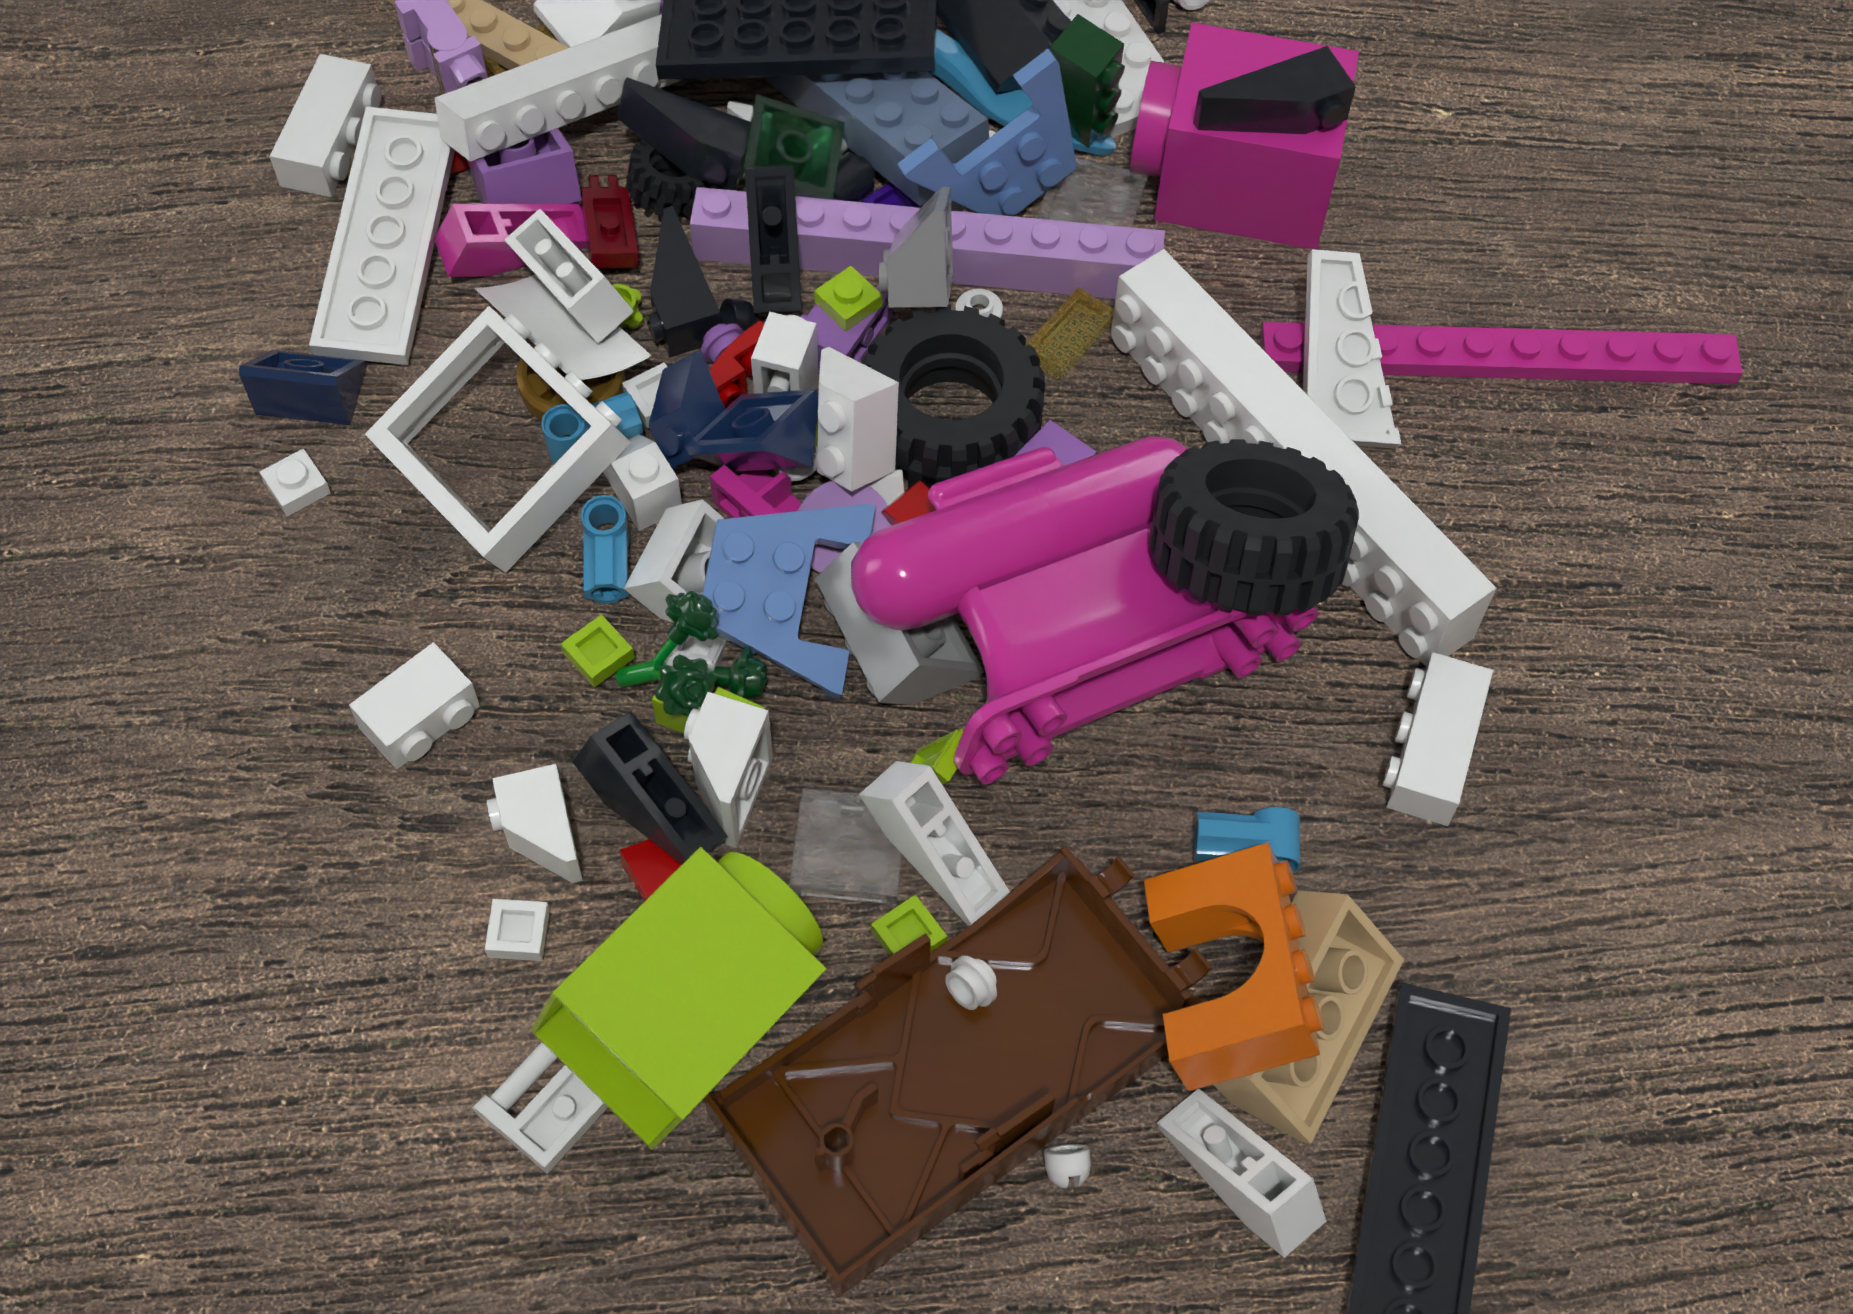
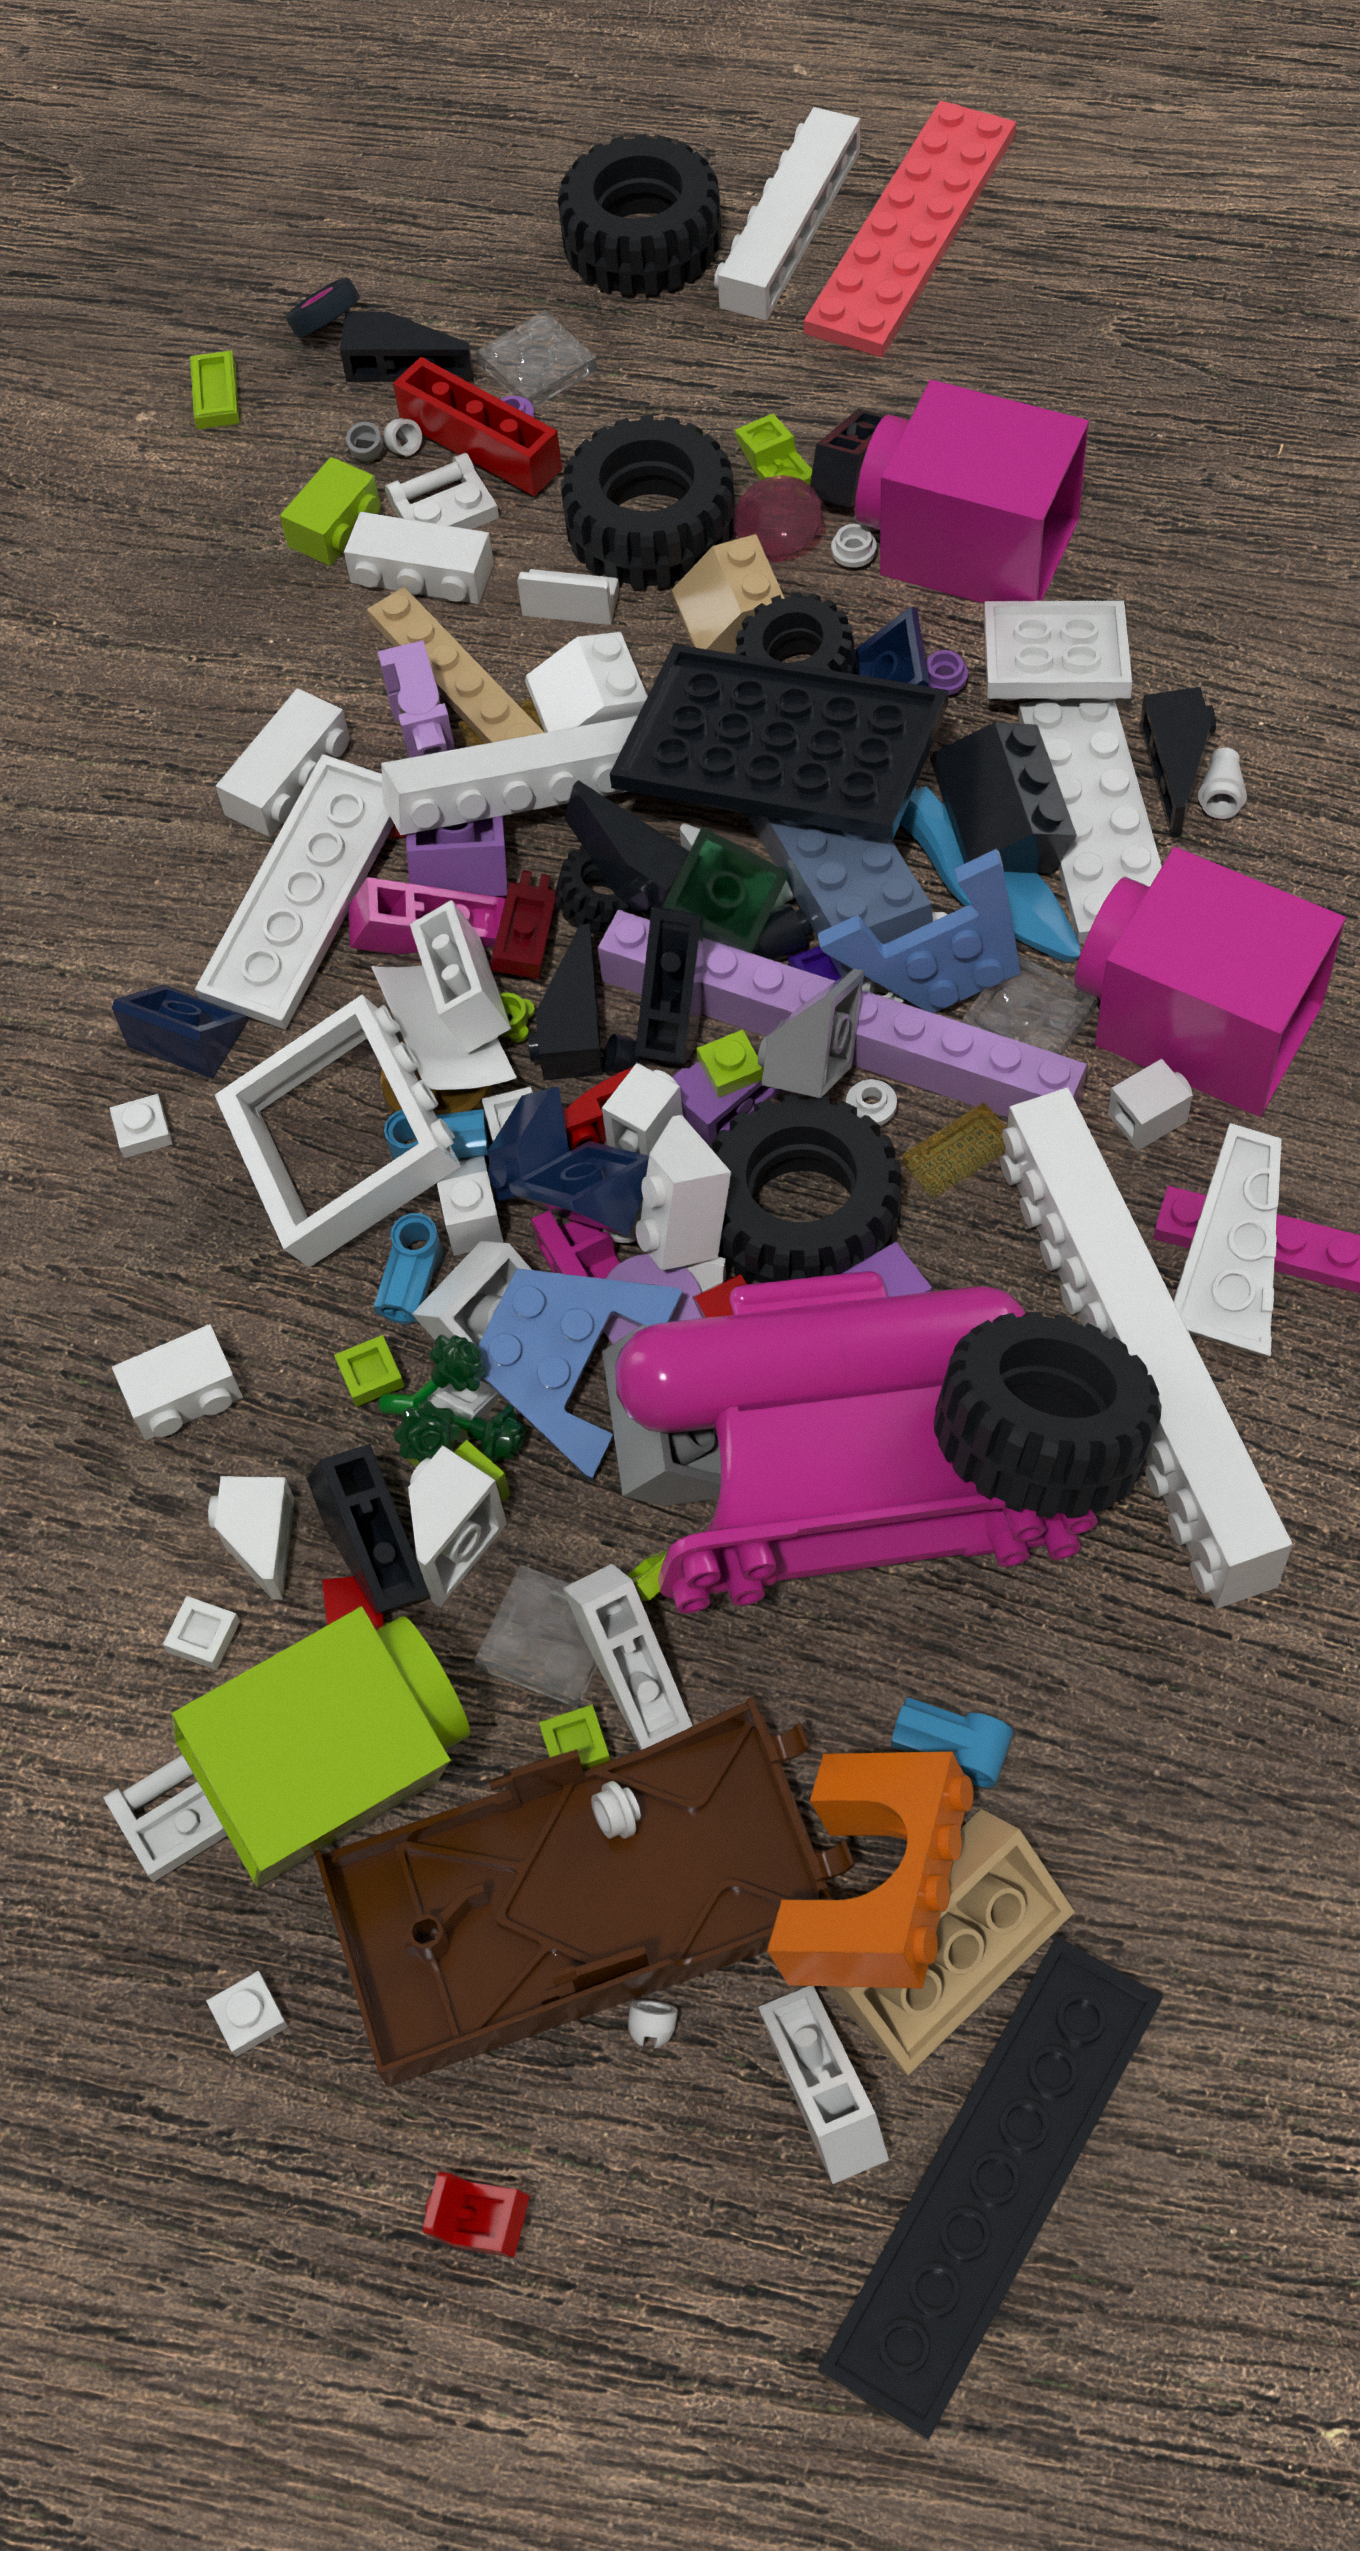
camera: 25 degrees right, 0 degrees up
(682, 1269) = (247, 2014): none -> white plate
(718, 339) = (591, 1074): medium lavender plate -> none
(1090, 78) = (1048, 883): dark green brick -> none
(1224, 256) = (1150, 1104): none -> white brick
(1280, 98) = (1234, 954): black slope -> none
(1437, 738) = (1190, 1686): white brick -> none

